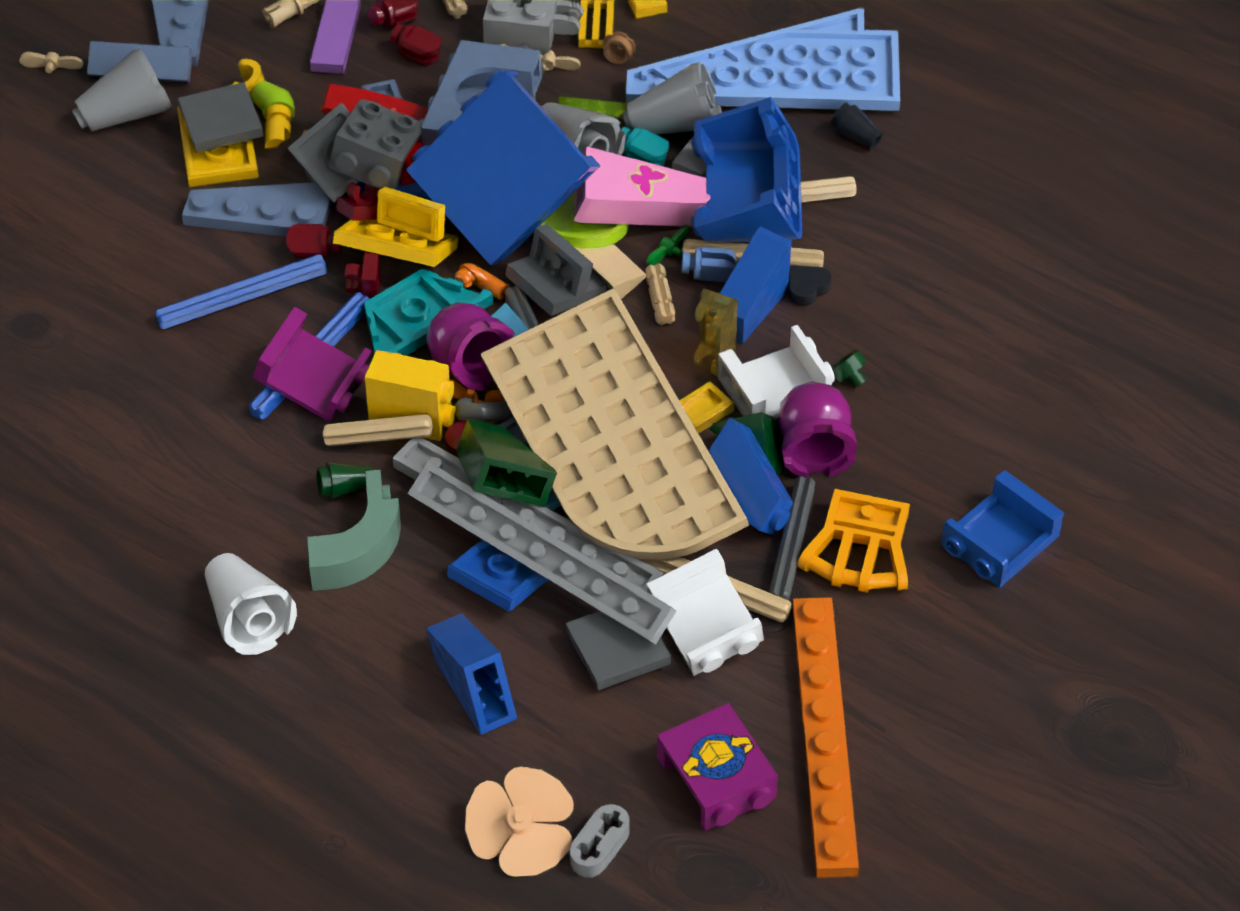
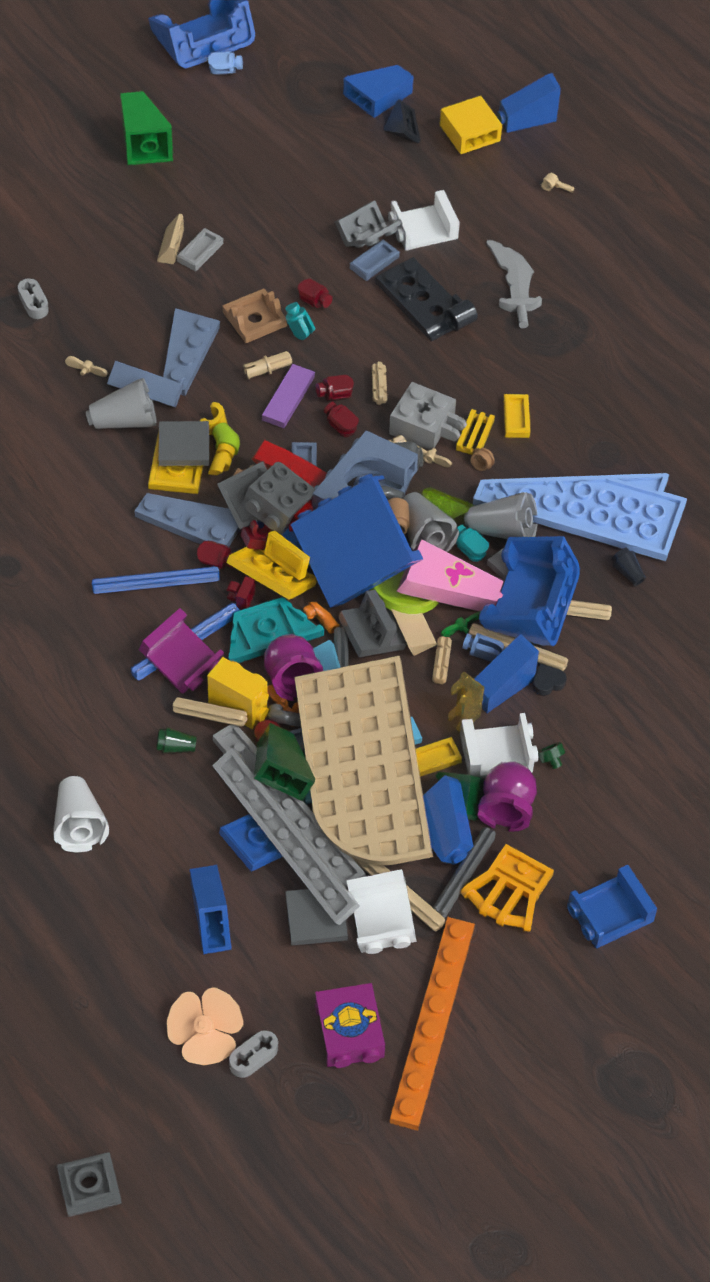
camera: 15 degrees right, 5 degrees up
(363, 549) = (172, 796): sand green arch -> none

